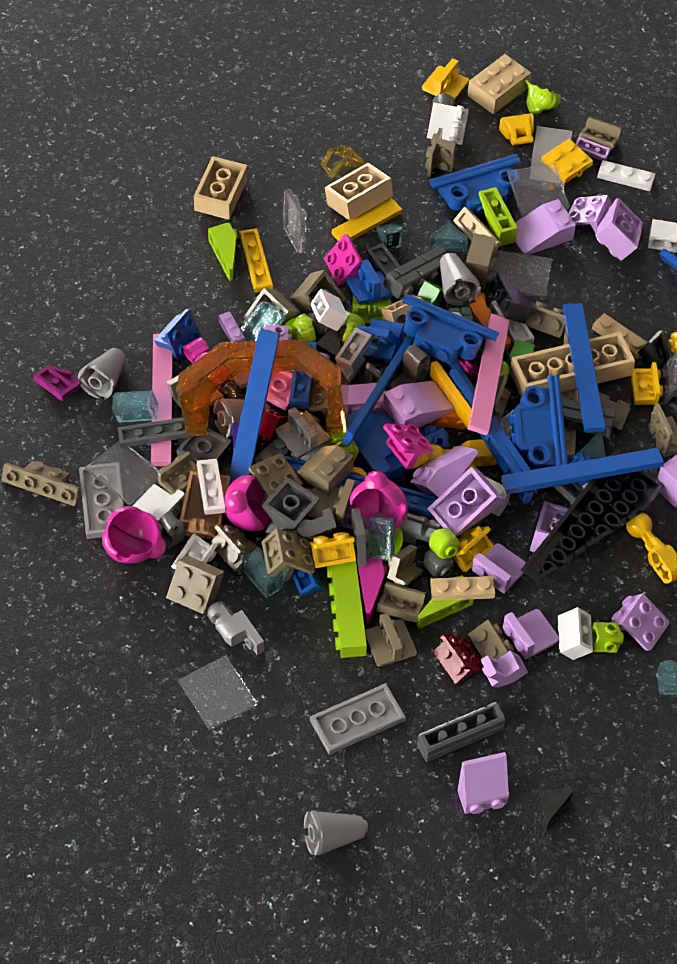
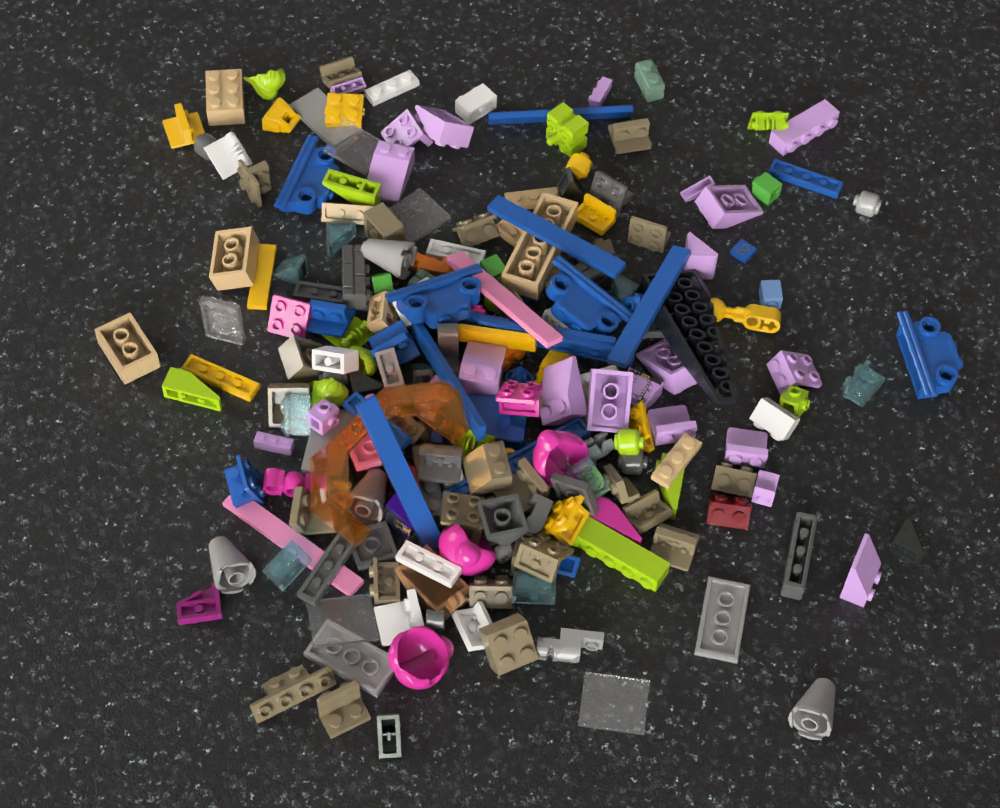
camera: 50 degrees left, 0 degrees up
(54, 520) = (342, 709): none -> dark tan bracket
(59, 564) = (389, 735): none -> pearl dark grey slope
(349, 156) = (192, 242): clear yellow piece -> none
(508, 525) = (644, 389): none -> lavender torso
(510, 299) = (441, 237): black slope -> none

